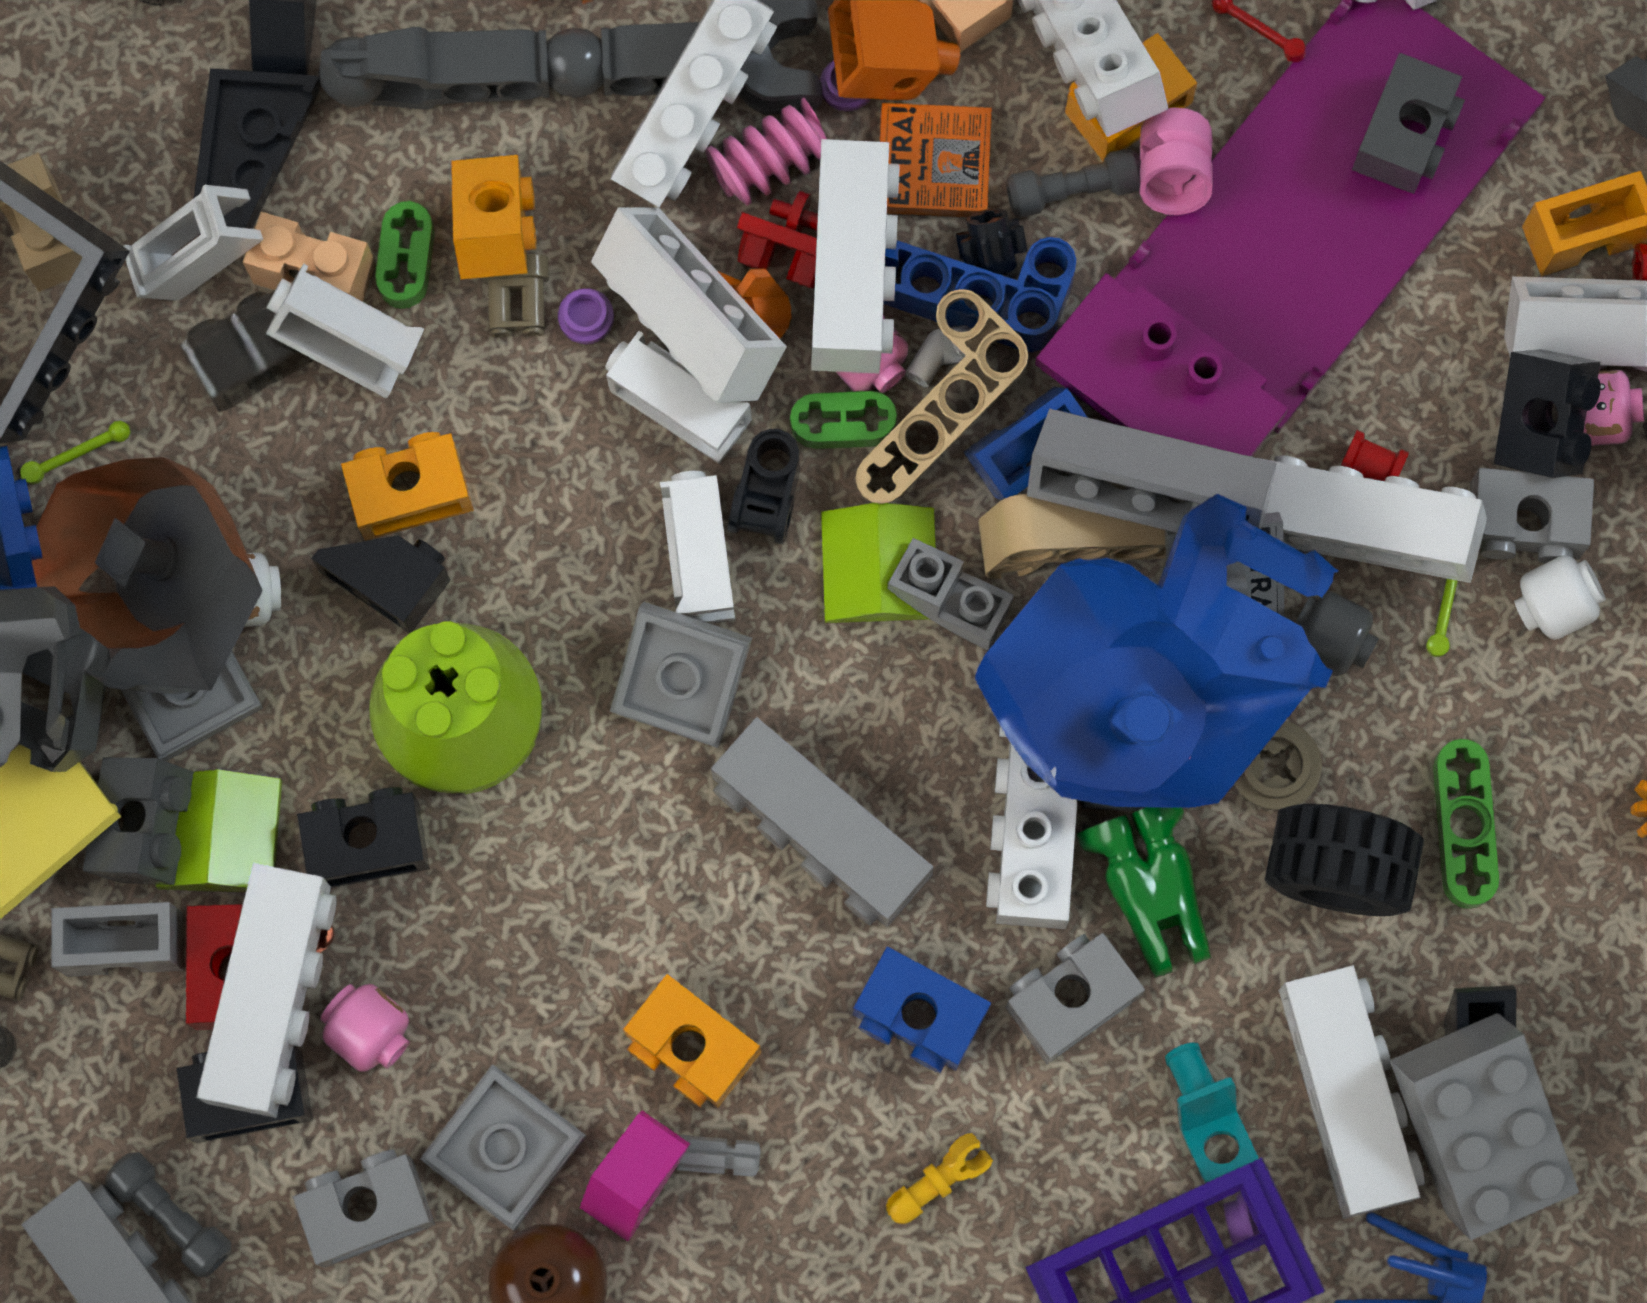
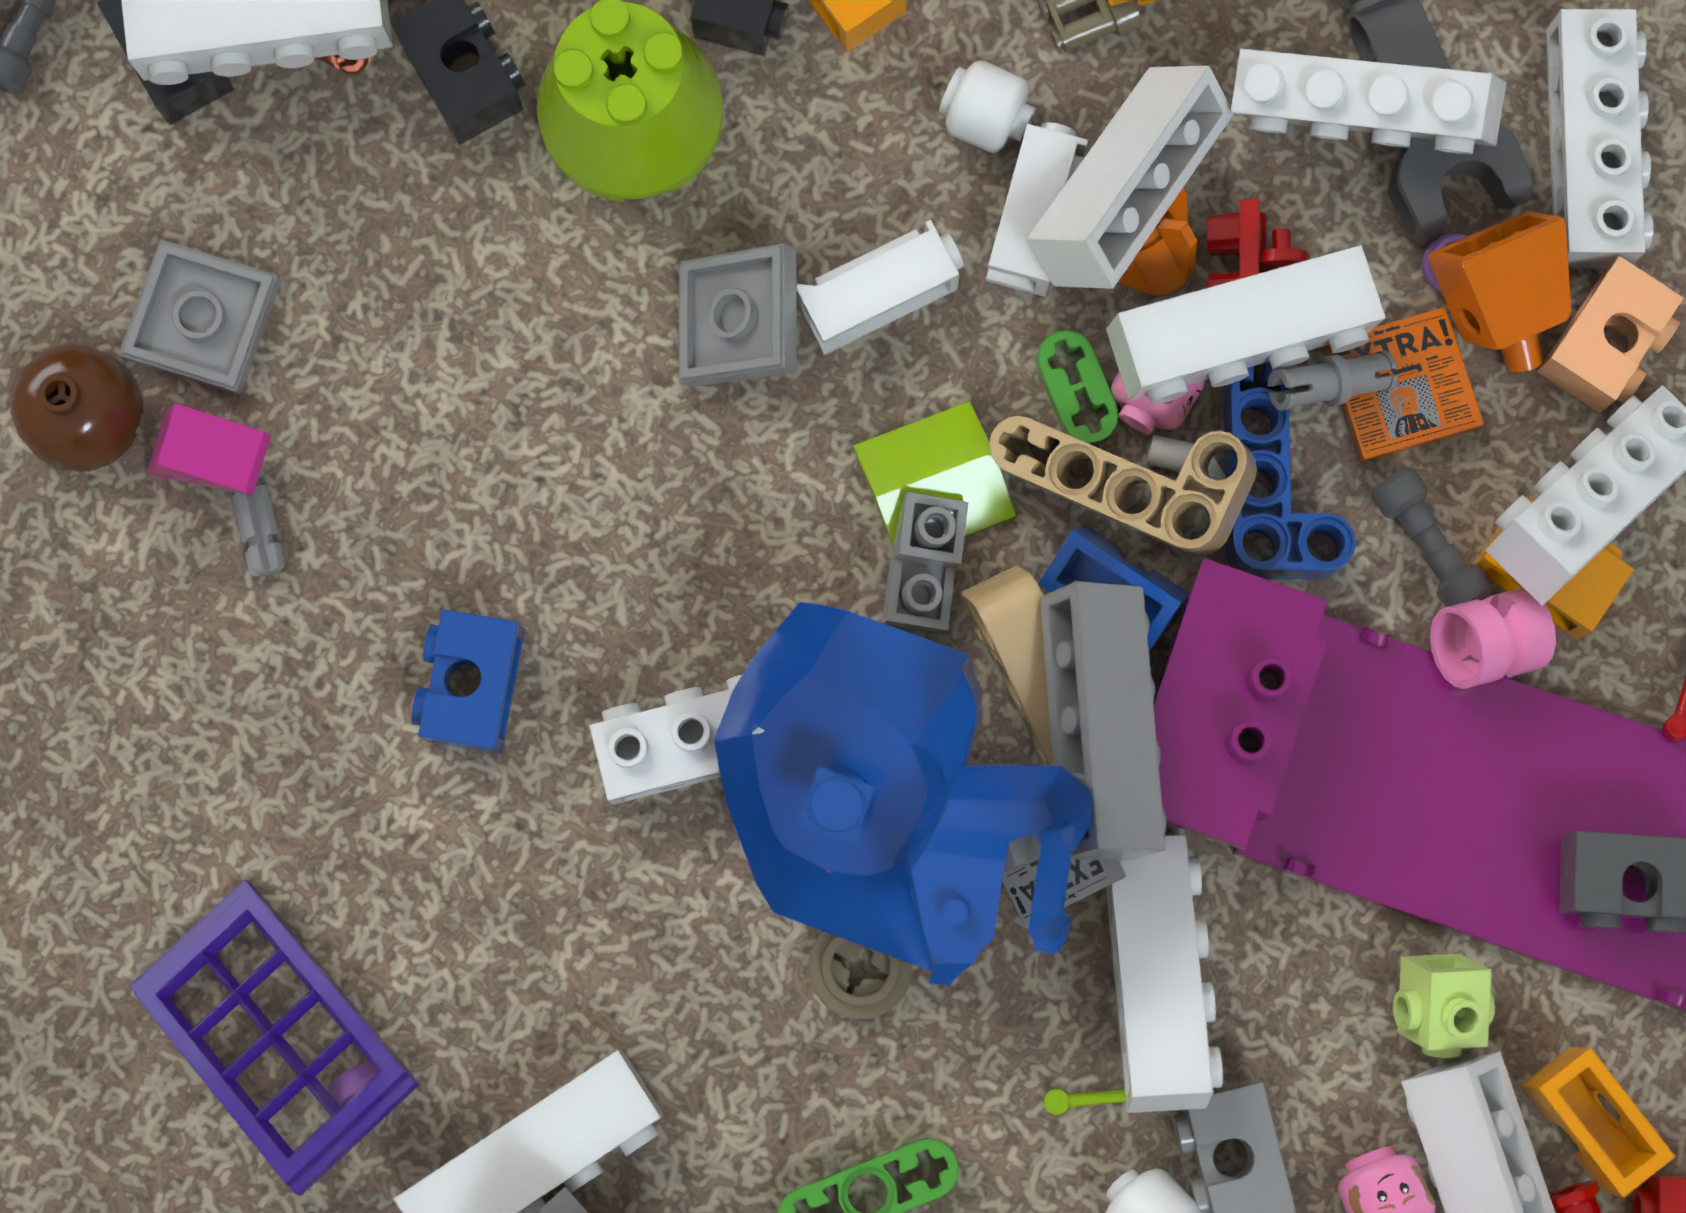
camera: 70 degrees right, 5 degrees up
(365, 1027) = (268, 136): bright pink head -> none
(398, 1213) = (61, 180): light grey brick -> none
(572, 406) = (986, 106): none -> white head
(585, 316) = (1093, 87): medium lavender plate -> none
(674, 1011) = (365, 497): light orange brick -> none
(766, 497) = (966, 335): black piece -> none
(767, 153) = (1337, 206): bright pink piece -> none
(821, 823) = (631, 512): light grey brick -> none
(907, 1203) = (273, 737): yellow piece -> none
(918, 207) = (1332, 380): none -> light grey pin
(992, 241) = (1328, 474): black gear -> none
(1052, 1025) = (498, 825): light grey brick -> none
(1154, 890) = (677, 879): green piece -> none
(1207, 1110) = (463, 1014): teal bracket -> none
(1338, 631) = (1023, 984): dark grey head -> none
(1344, 859) = (766, 1071): black tyre -> none
(1372, 459) = (1233, 964): red bush -> none
(1459, 306) = (1444, 1003): none -> yellowish green brick
(1527, 431) = (1376, 1144): black brick -> none

